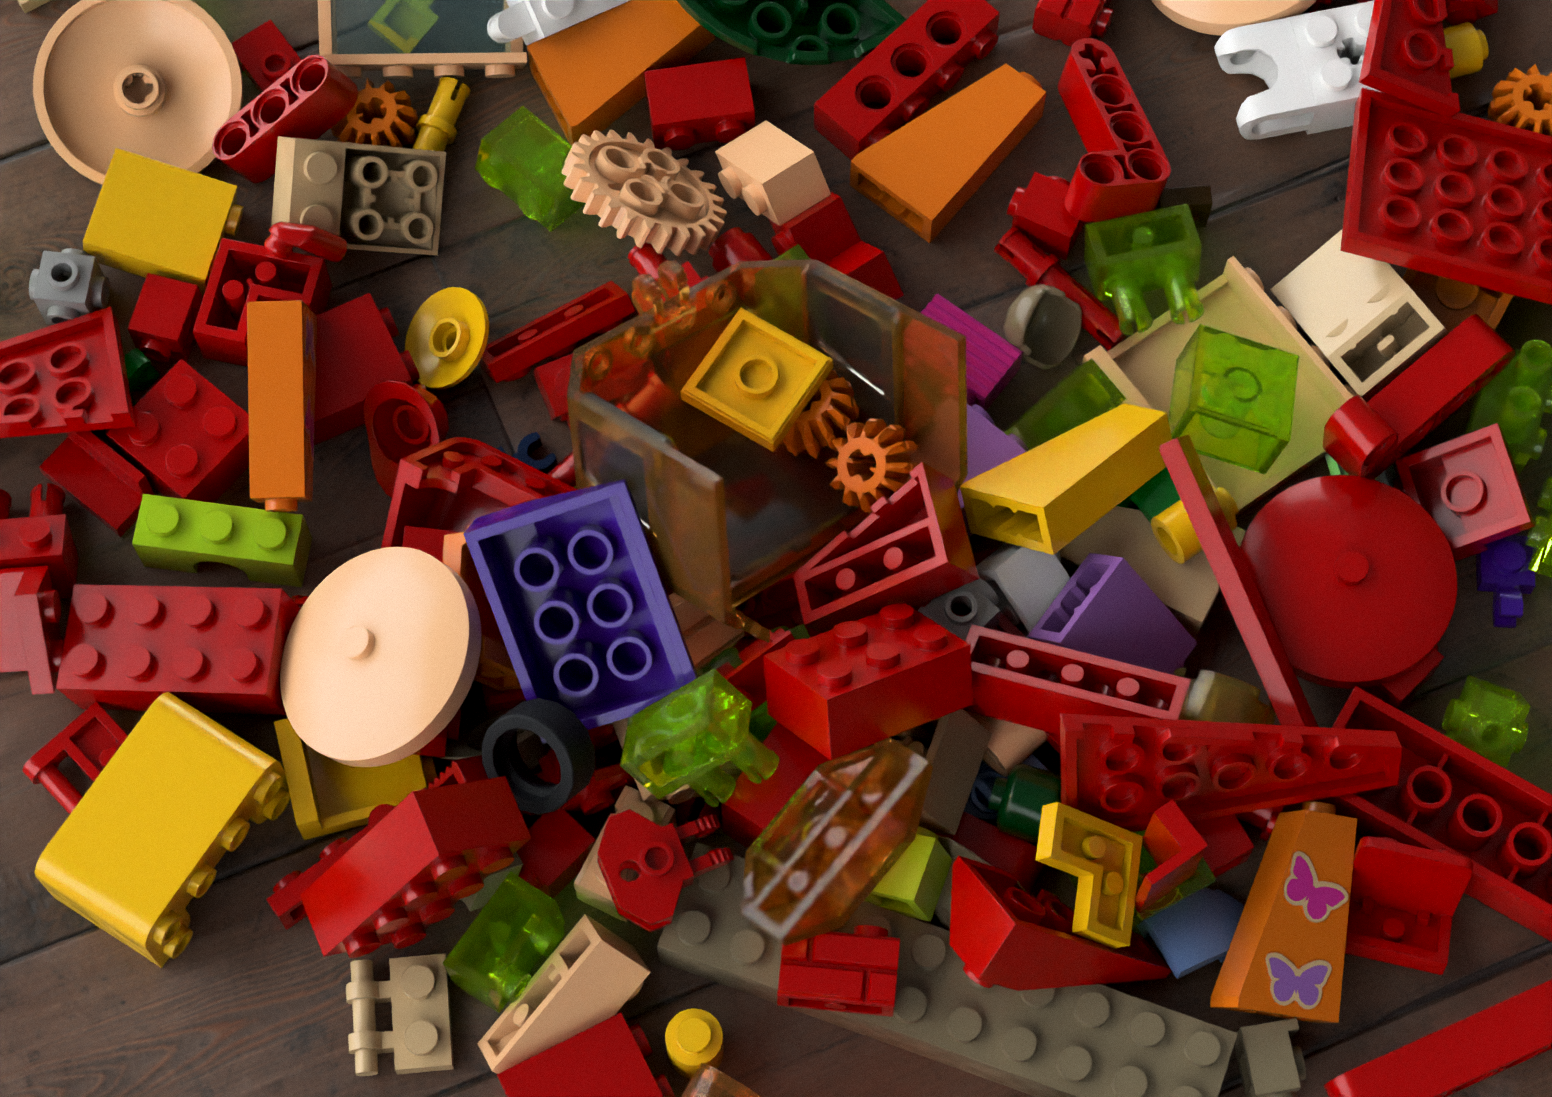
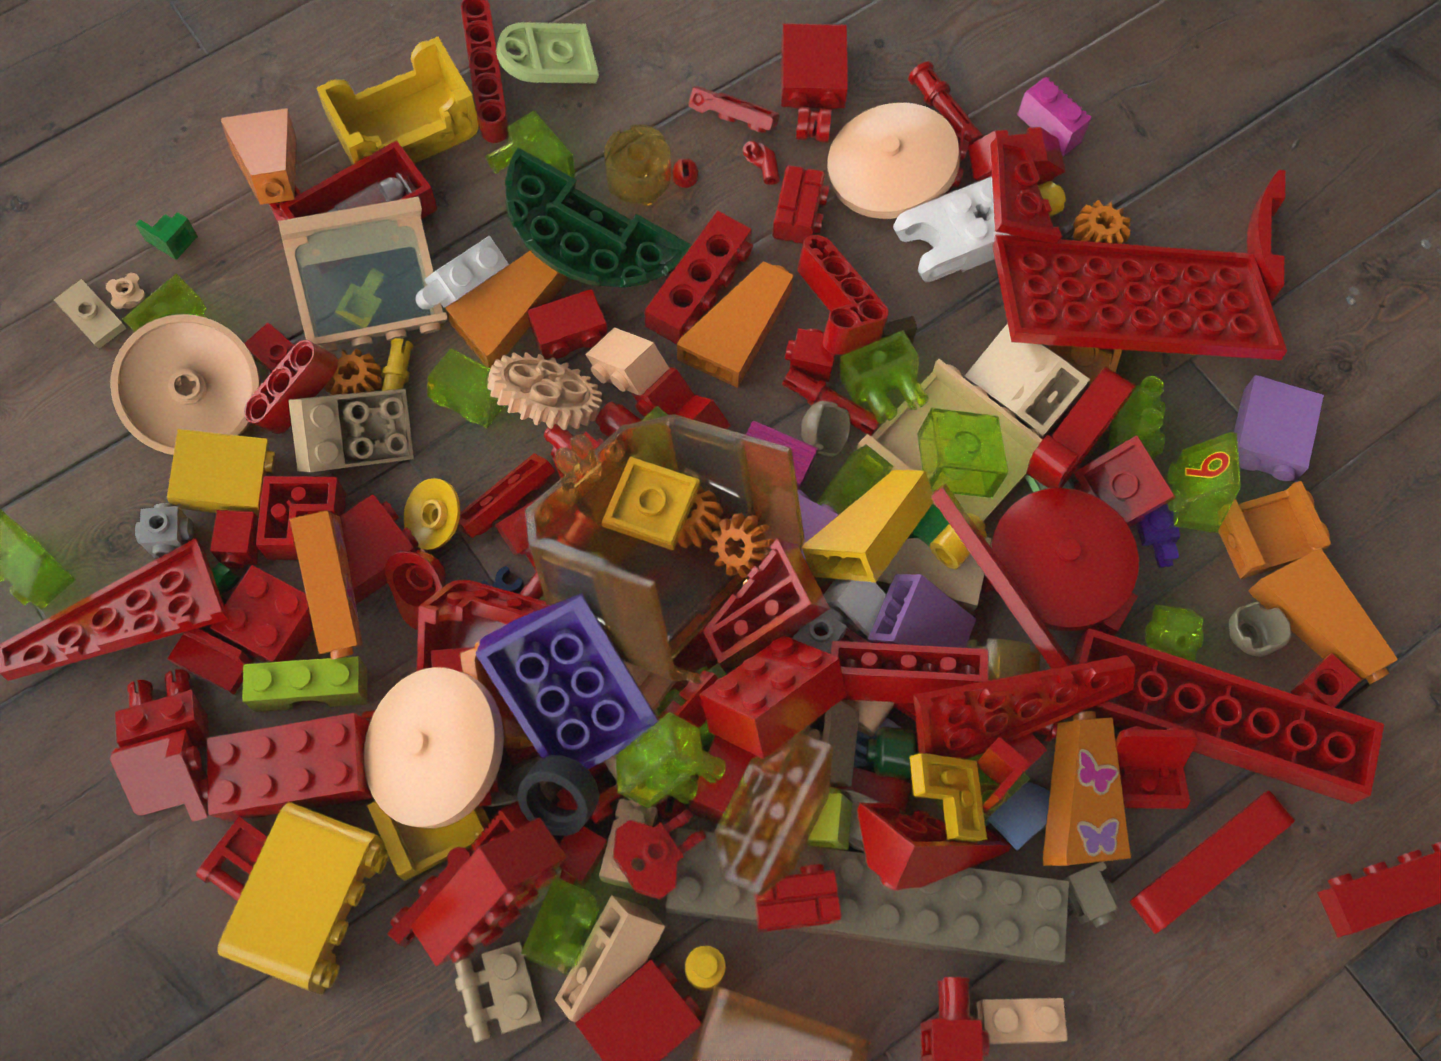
camera: 15 degrees left, 0 degrees up
(307, 237) = (323, 465): red arm -> none

